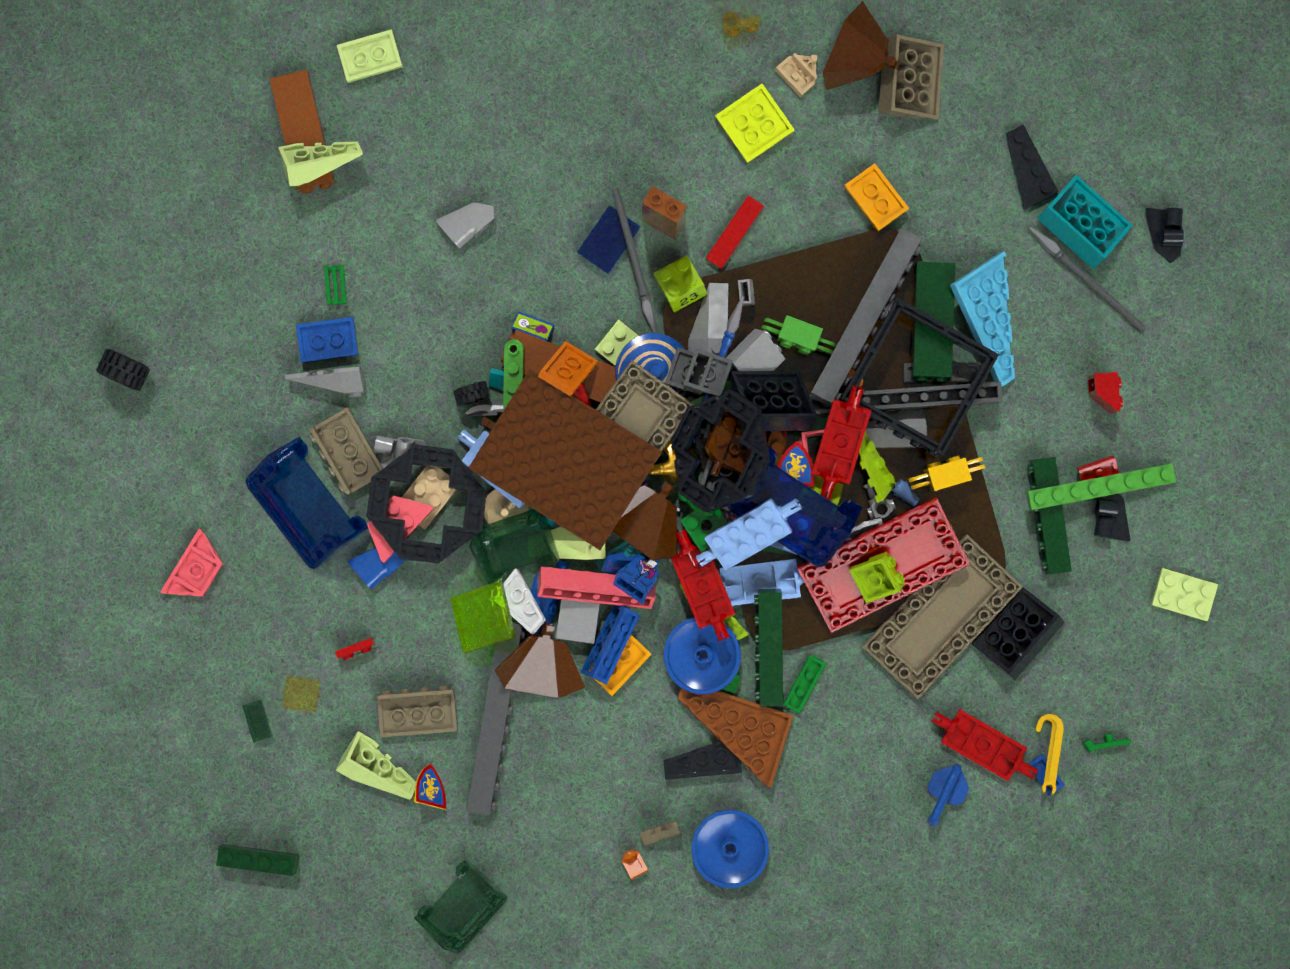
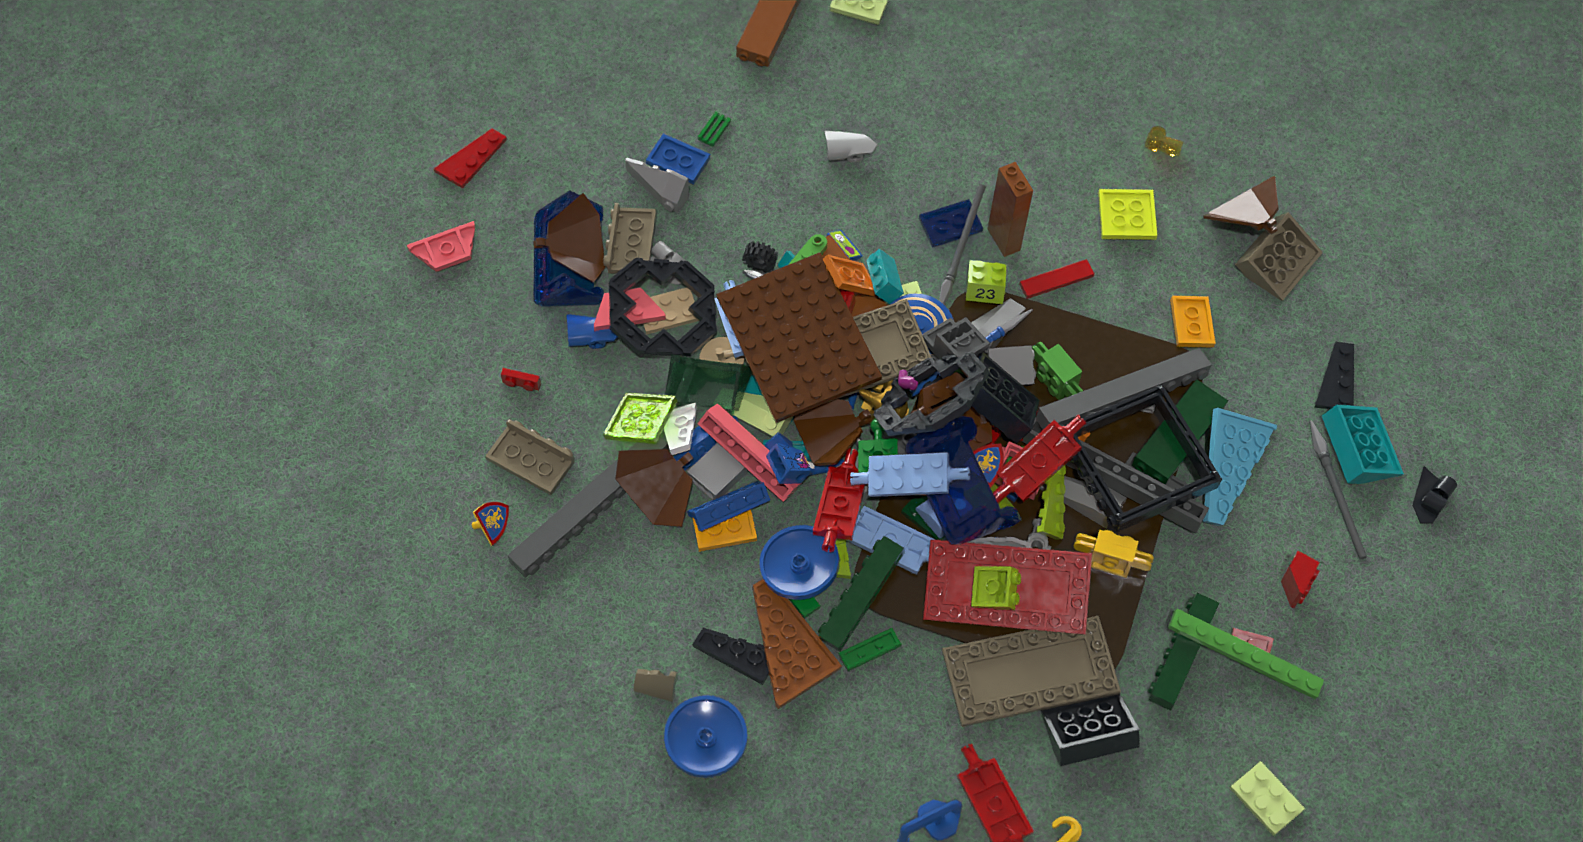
camera: 30 degrees right, 25 degrees down
(123, 369) = (510, 80): black tyre -> none
(145, 467) = (468, 161): none -> red wing
(257, 721) = (400, 383): clear green plate -> none
(257, 859) = (310, 482): dark green brick -> none
(301, 694) = (450, 388): clear yellow piece -> none
(305, 490) = (576, 239): none -> reddish brown panel
(308, 163) = (756, 31): yellowish green wedge -> none
(369, 766) = (457, 469): yellowish green wedge -> none
(462, 909) = (441, 636): clear green windscreen -> none
(592, 341) = (884, 276): none -> teal brick
(633, 863) = (613, 694): orange plate -> none
(687, 446) = (906, 381): none -> magenta arm
(750, 291) = (1036, 319): light grey piece -> none
(798, 72) = (1188, 202): tan slope -> none
(903, 491) = (1065, 543): medium blue cone -> none
(1111, 518) = (1238, 690): black panel -> none

